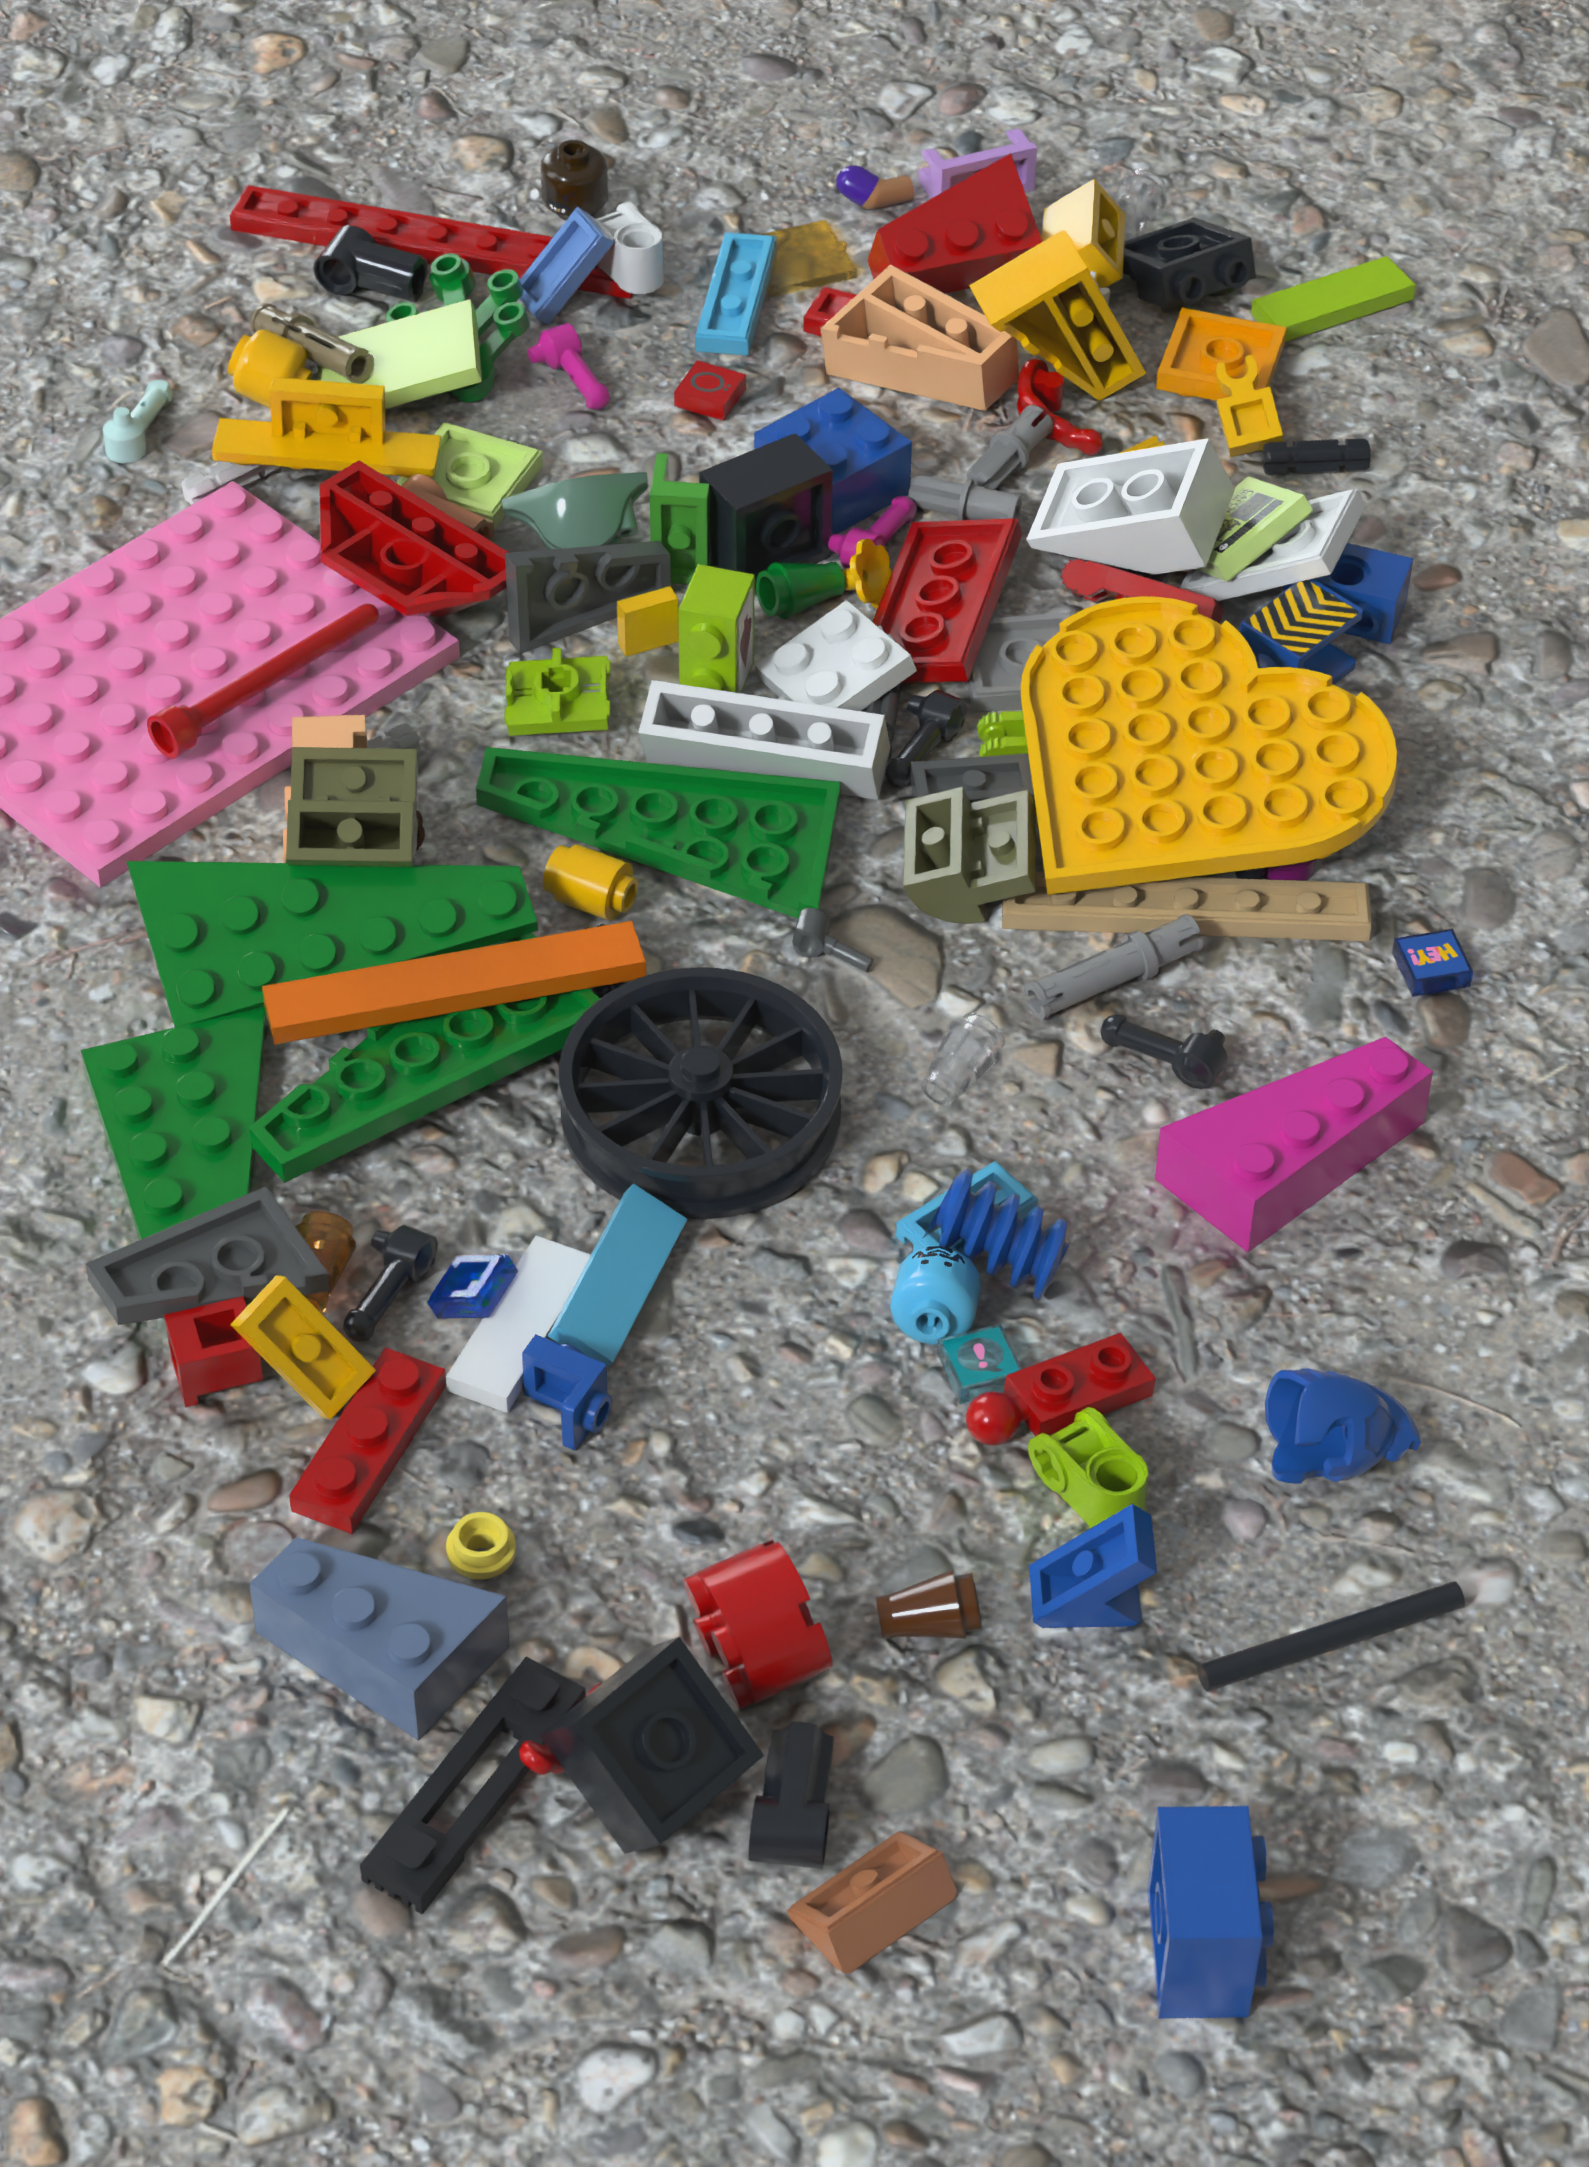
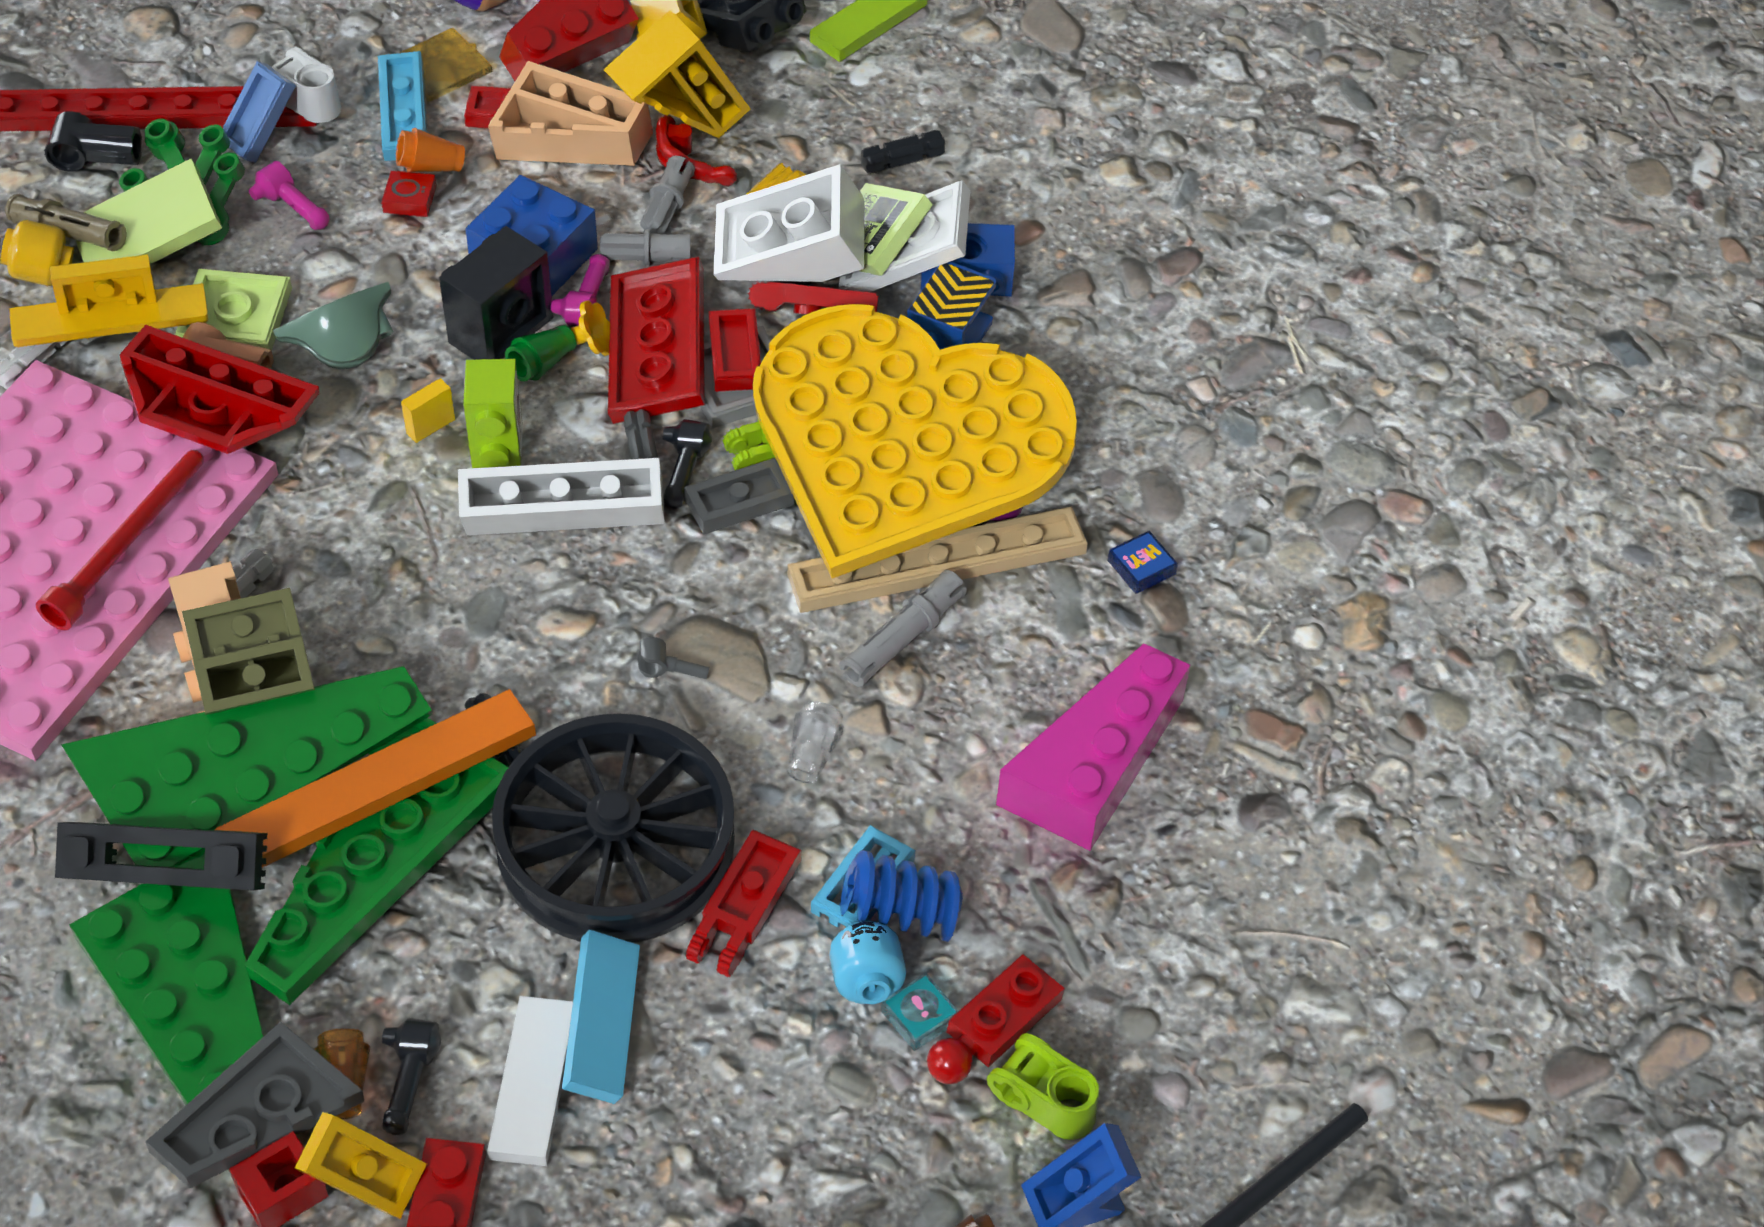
camera: 20 degrees left, 5 degrees up
(265, 1018) = (230, 861): none -> black container
(472, 1286) = (482, 1058): clear blue tile -> none
(557, 695) = (374, 492): lime piece -> none
(569, 1382) = (595, 1127): blue bracket -> none
(574, 178) = (240, 34): dark brown head -> none
(577, 587) = (363, 395): dark grey wing -> none
(590, 881) = (458, 656): yellow brick -> none
(680, 521) = (431, 325): bright green panel -> none
(718, 828) = (543, 581): green wing -> none
(746, 348) = (428, 153): none -> orange cone
(820, 1202) = (744, 899): none -> red hinge
(837, 662) = (595, 416): white plate -> none
(968, 852) = (758, 557): olive brick -> none
(1025, 620) = (734, 348): none -> red tile
(1194, 1061) = (994, 694): black piece -> none
(1209, 338) = (803, 84): light orange plate -> none
(1247, 414) = (841, 128): yellow plate -> none
(1333, 1426) = (1219, 995): blue helmet -> none

